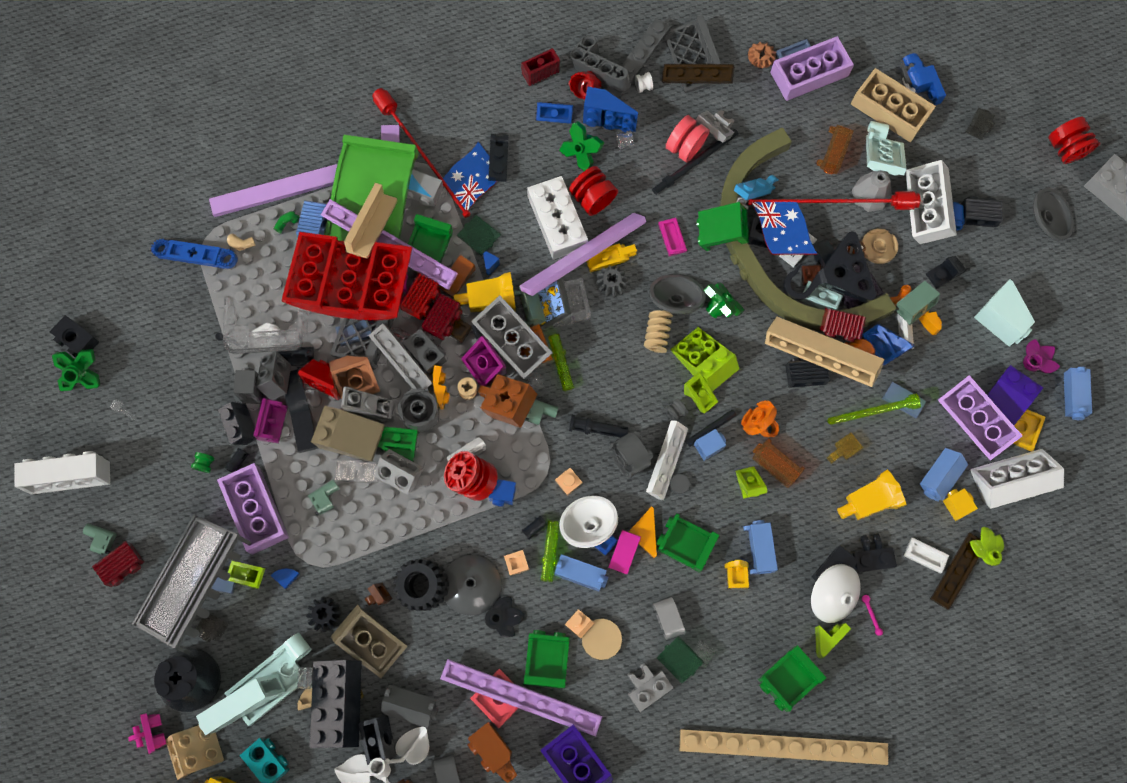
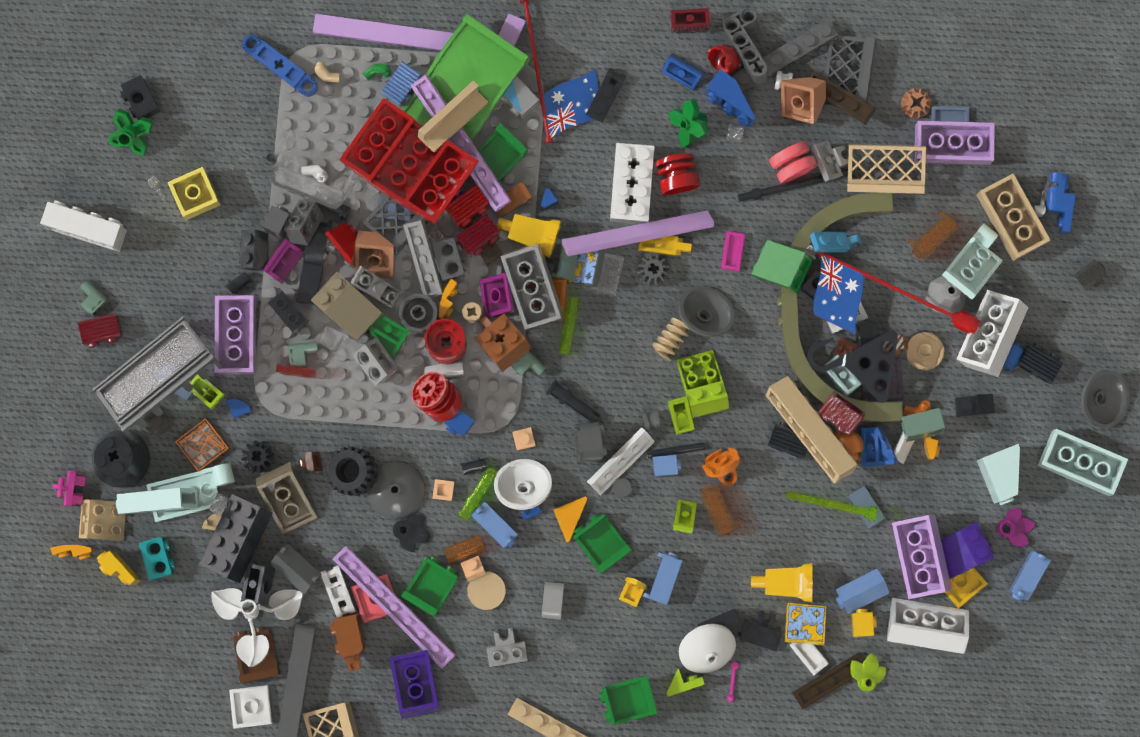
camera: 30 degrees right, 10 degrees up
(159, 397) = (194, 193): none -> light yellow brick
(202, 462) = (208, 271): green wheel -> none
(264, 628) = (202, 445): none -> tile
(295, 464) = (288, 312): none -> black brick
(325, 516) = (295, 371): none -> clear red tile
(450, 414) = (447, 331): none -> red wheel
(459, 709) = (338, 591): none -> white plate
(478, 235) = (551, 166): clear green piece -> none
(562, 609) = (464, 549): none -> clear orange axle
(624, 552) = (542, 525): dark pink tile -> none
(668, 87) = (802, 98): none -> nougat slope
(680, 659) = (544, 640): clear green piece -> none
(722, 302) = (744, 338): green plant -> none
(775, 124) = (886, 185): none -> tan fence
(845, 447) = (789, 526): clear yellow plate -> none
(909, 528) = (805, 624): none -> tile
(1066, 275) = (1082, 462): none -> light aqua brick

